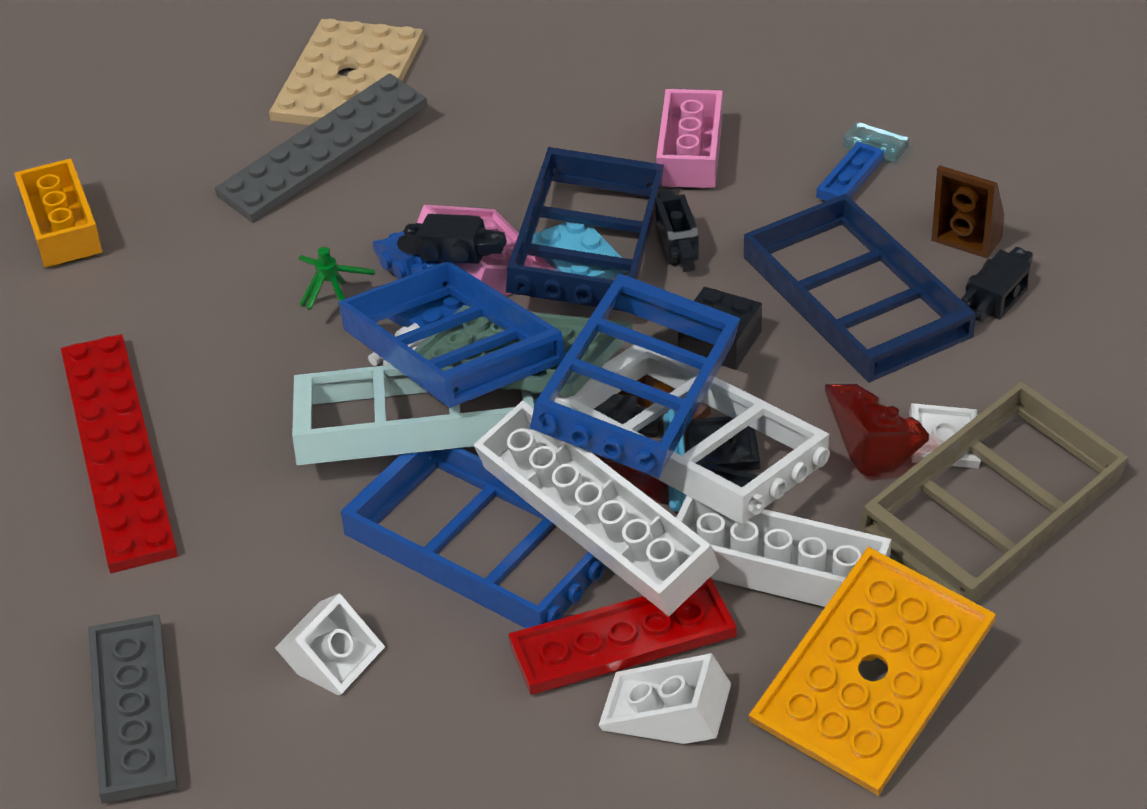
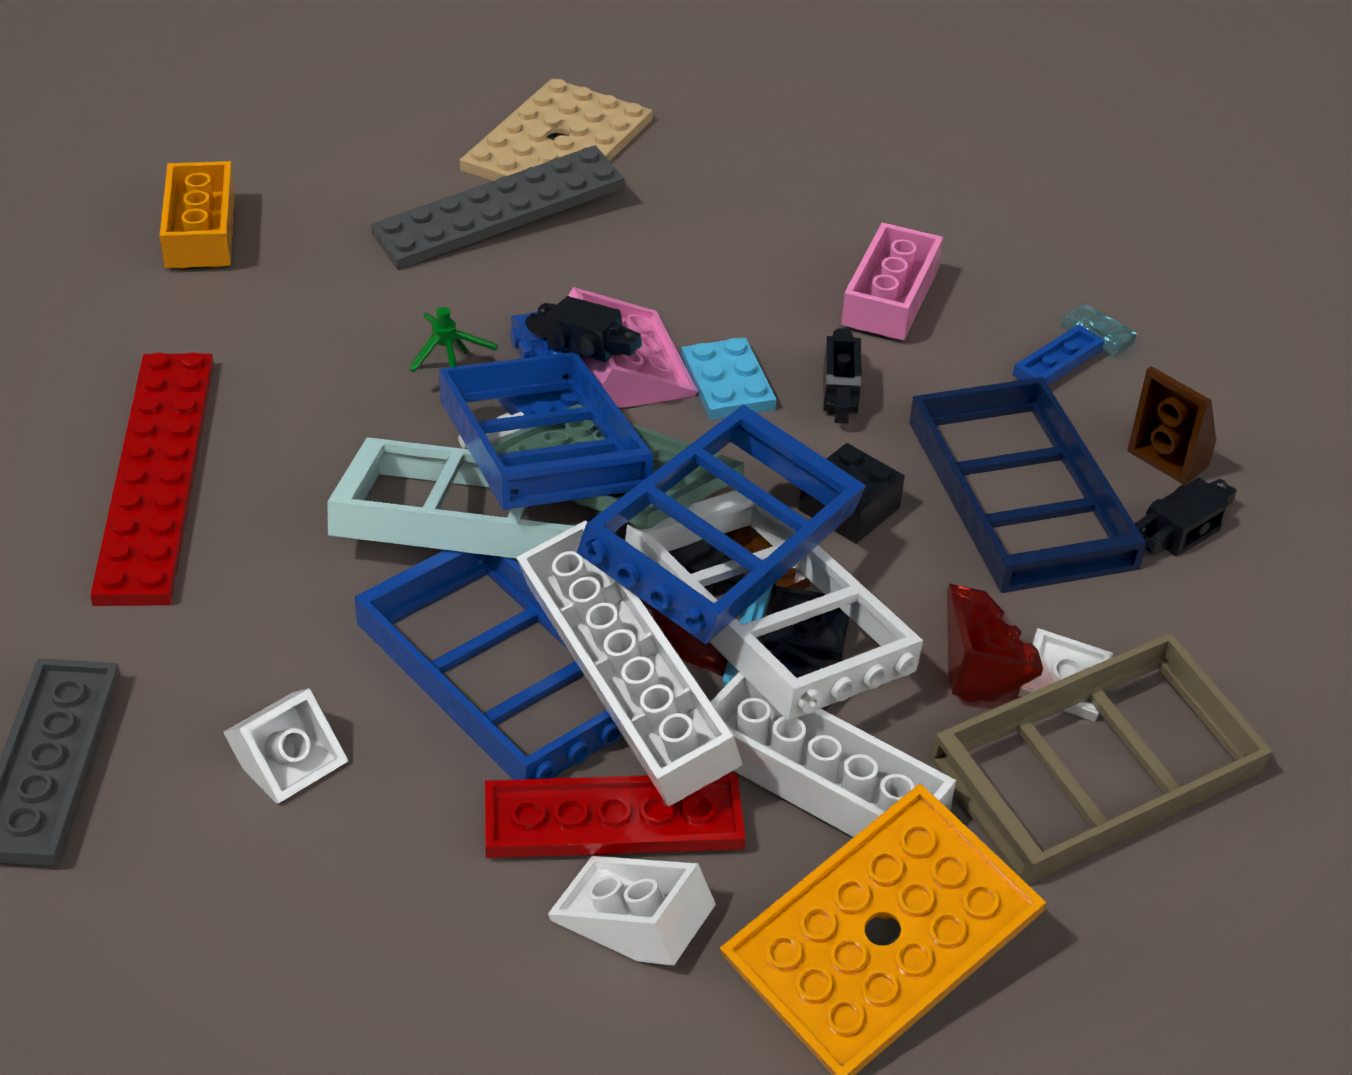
camera: 10 degrees right, 0 degrees up
(588, 171) = (761, 289): dark blue window -> none

